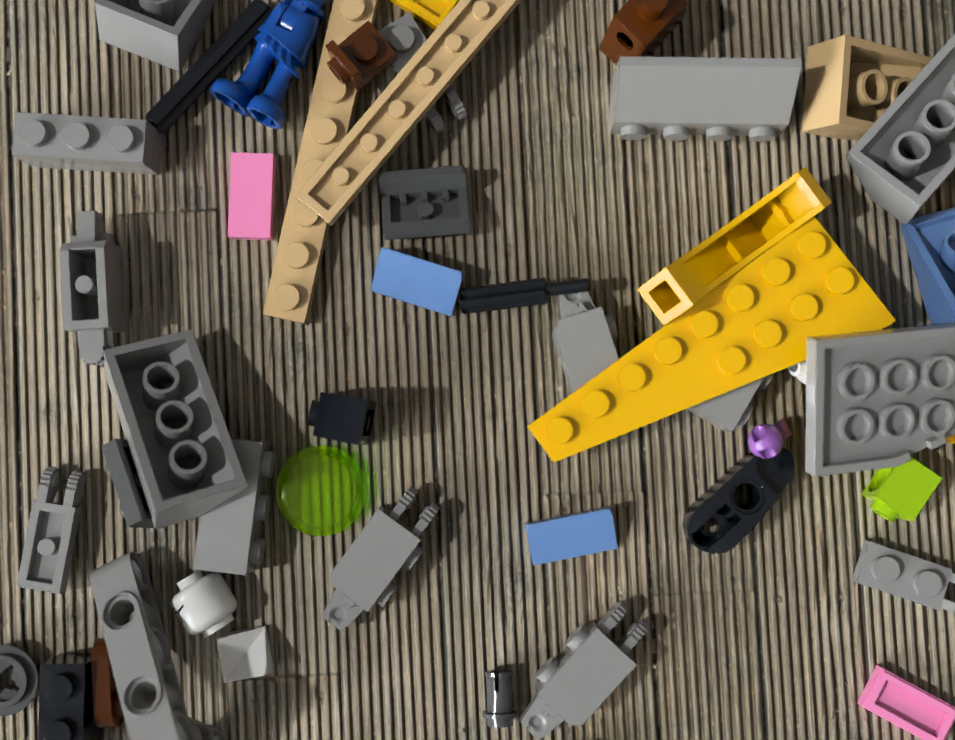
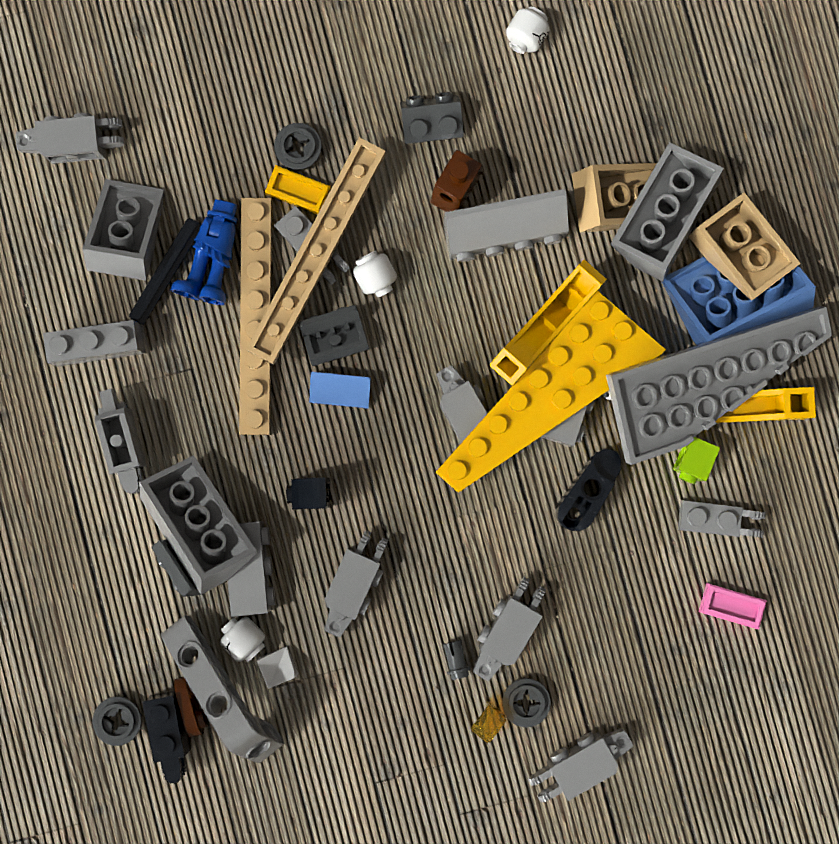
camera: 20 degrees left, 0 degrees up
(51, 533) = (127, 615): light grey hinge -> none
(251, 196) = (214, 355): bright pink tile -> none
(321, 490) = (305, 546): clear neon green piece -> none
(360, 56) = (268, 245): reddish brown bracket -> none
(500, 129) = (375, 274): none -> white head
(516, 294) = (409, 384): black axle -> none
(571, 535) = (481, 540): medium blue slope -> none
(767, 440) = (598, 447): medium lavender arm -> none

